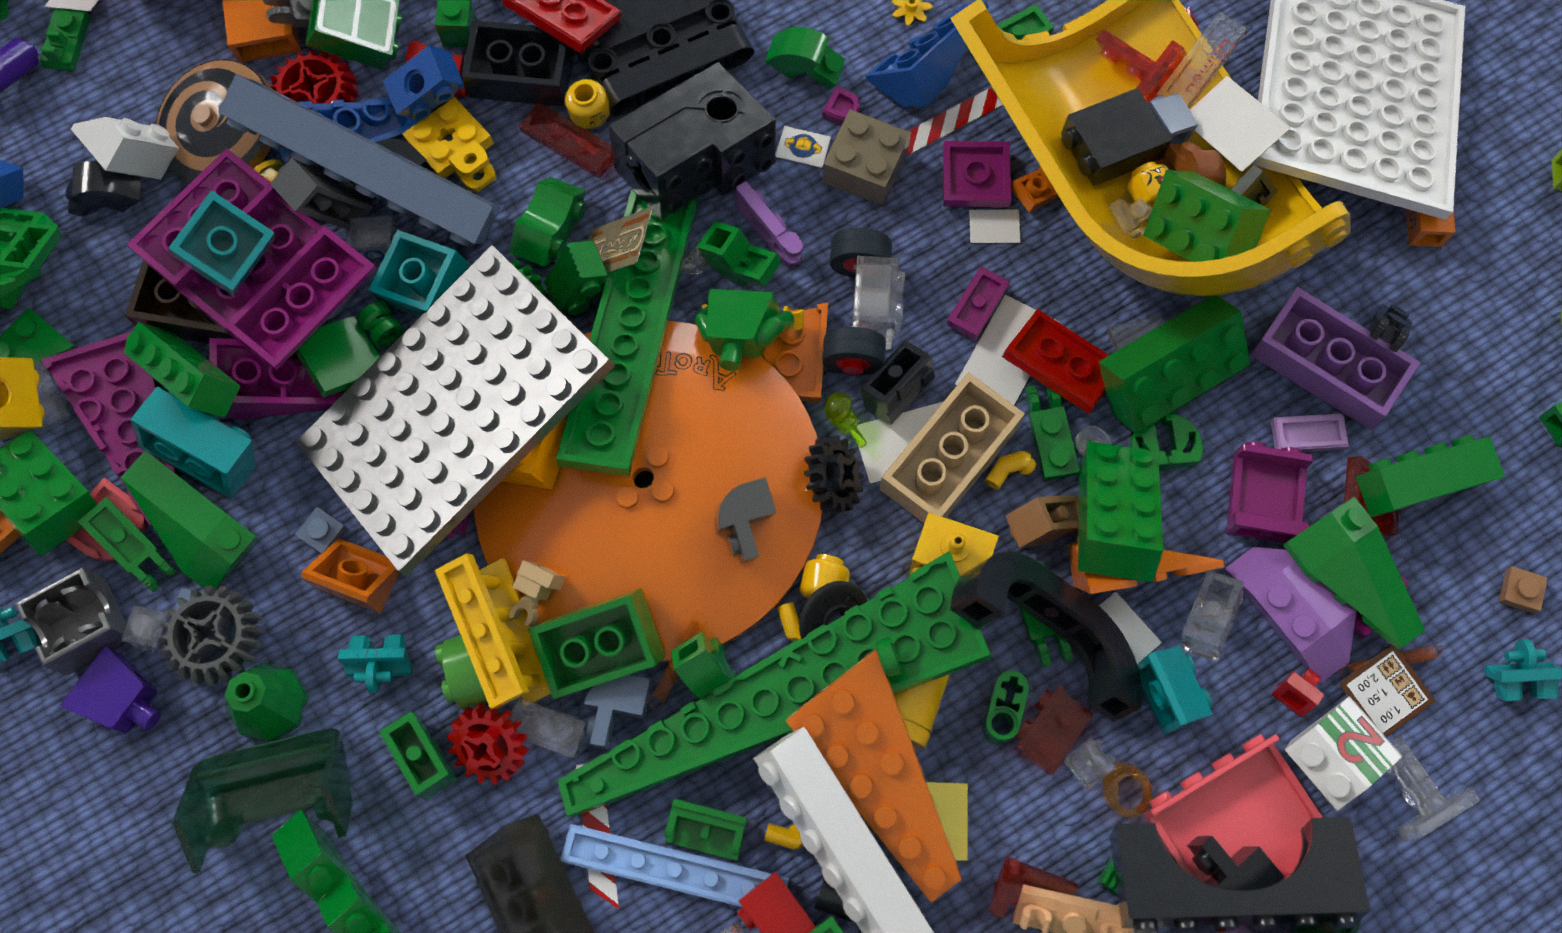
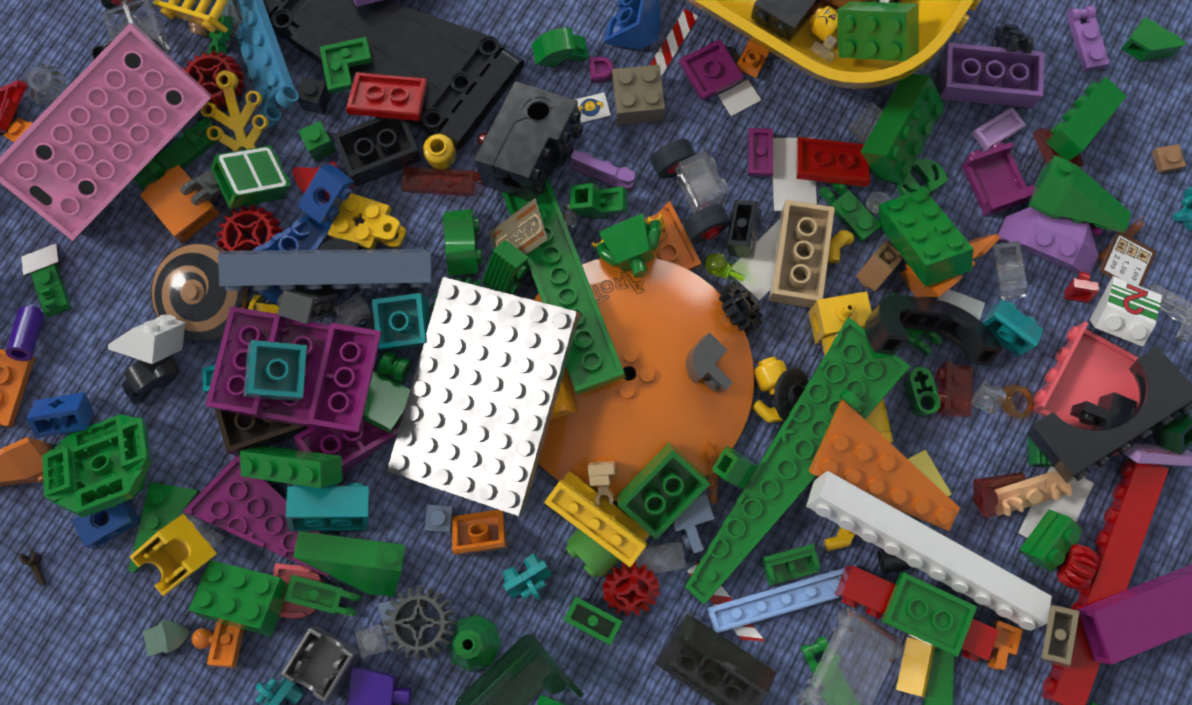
camera: 30 degrees left, 5 degrees up
(1499, 381) = (1088, 38): none -> medium lavender plate

